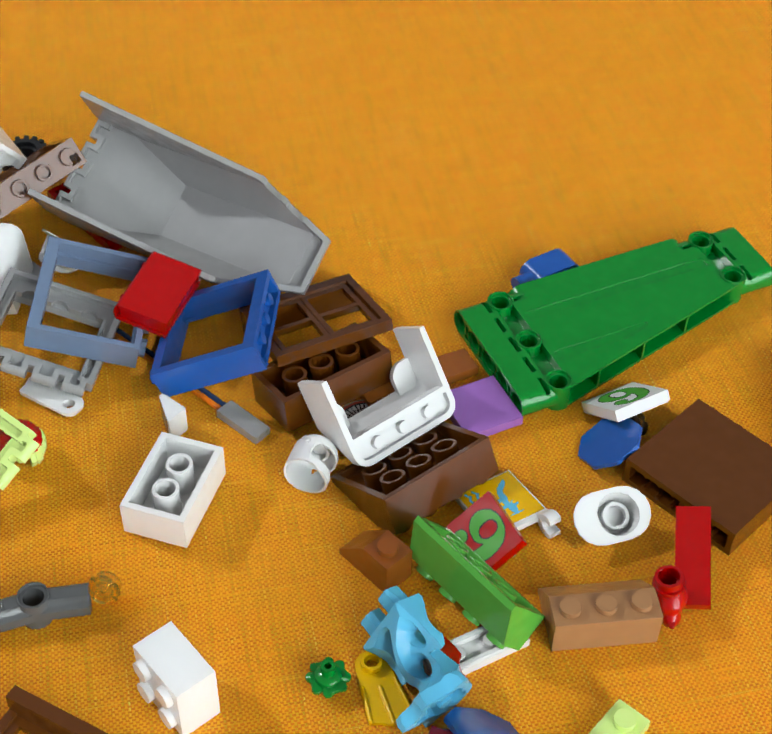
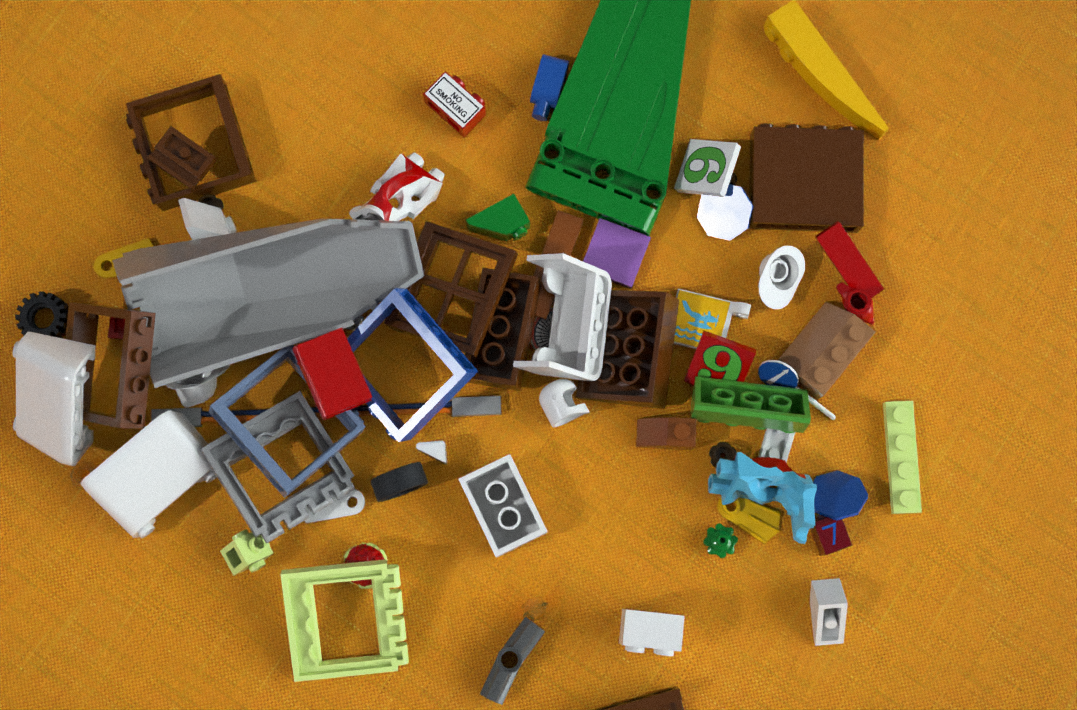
camera: 45 degrees left, 35 degrees up
(123, 396) = (399, 481): none -> black tyre
(224, 130) = (182, 158): none -> reddish brown plate
(292, 123) = (176, 97): none -> reddish brown window
(361, 248) = (401, 181): none -> white hips
(410, 313) = (501, 221): none -> green slope
(458, 236) = (455, 104): none -> brick
(532, 585) = (781, 374): none -> blue piece

